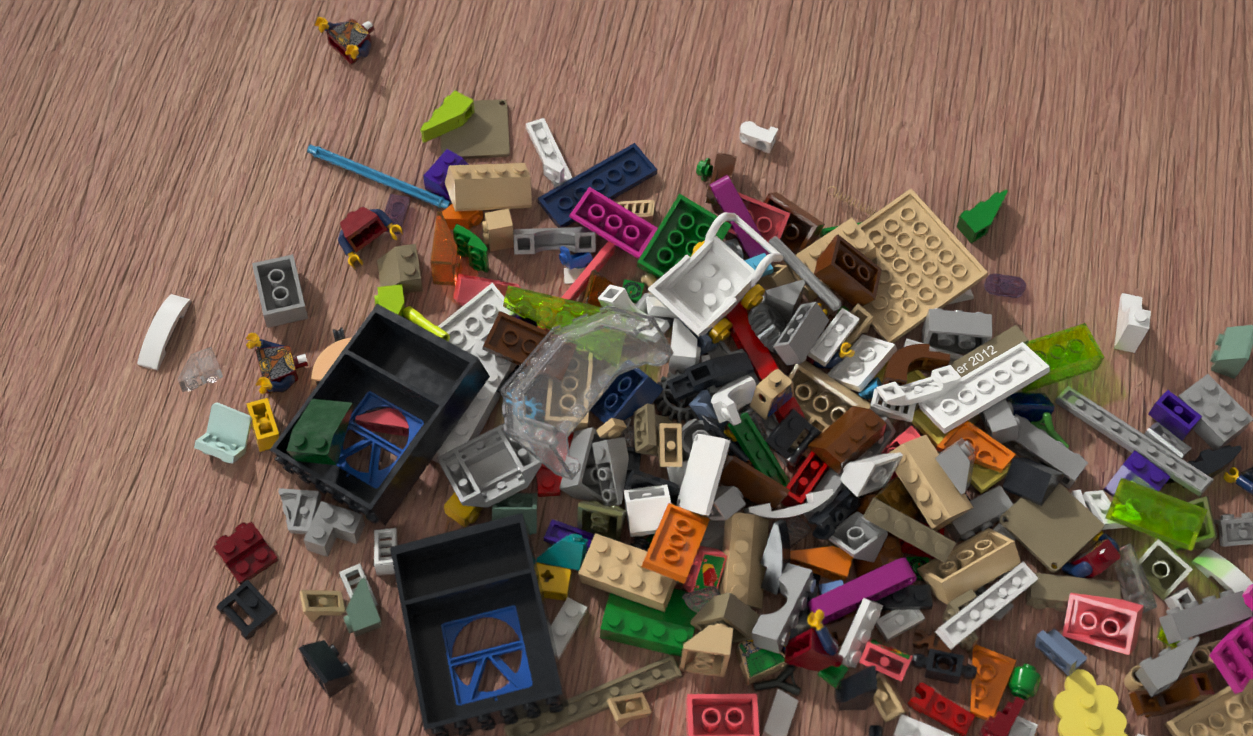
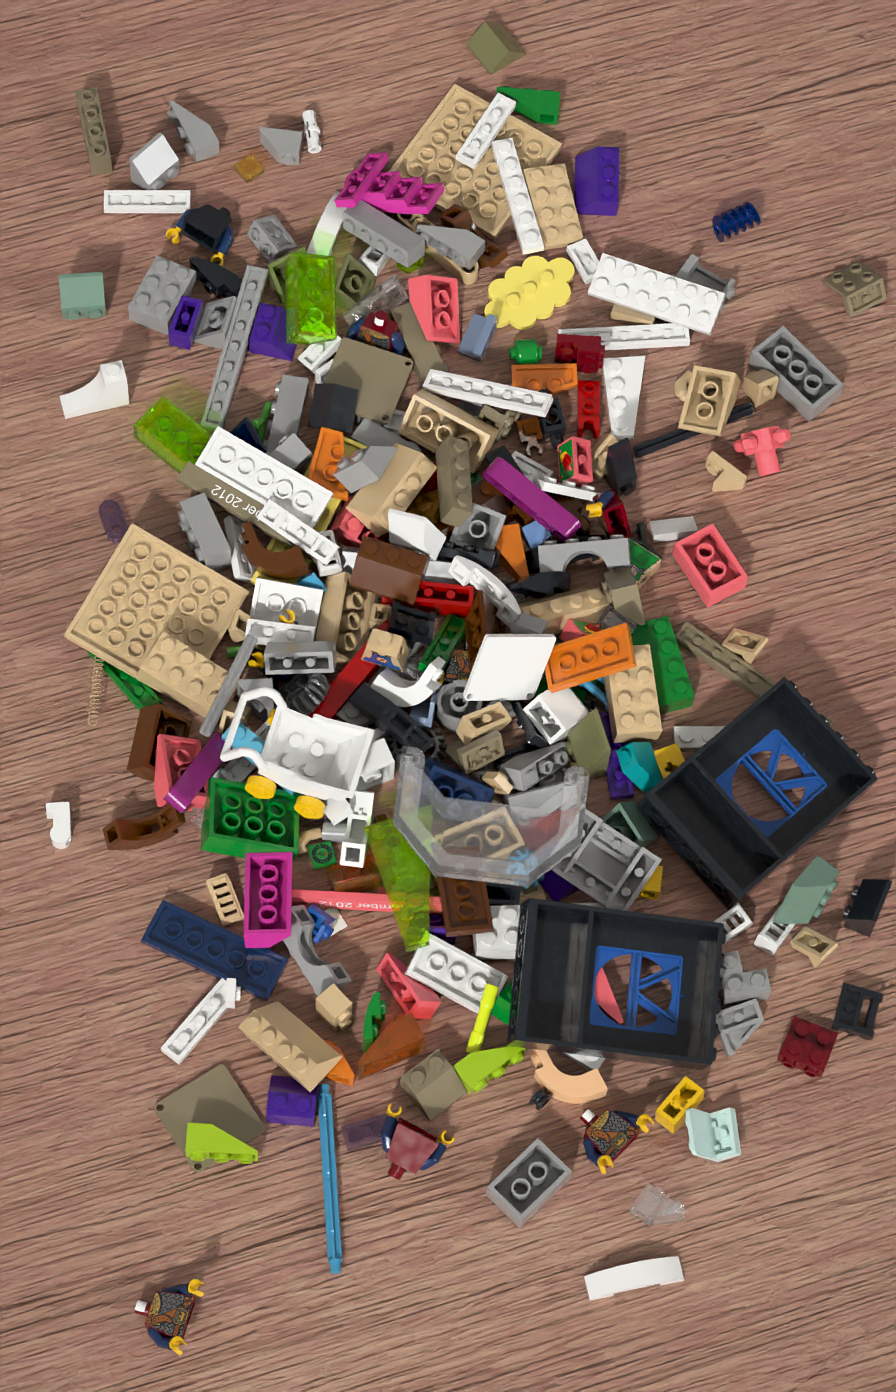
camera: 120 degrees left, 5 degrees up
(320, 432) = (672, 1016): dark green slope -> none
(704, 169) = (133, 855): green plate -> none
(708, 651) = (663, 595): tan slope -> none
(711, 424) = (445, 693): black piece -> none
(848, 272) = (206, 643): reddish brown slope -> none
(977, 221) = (45, 568): green slope -> none

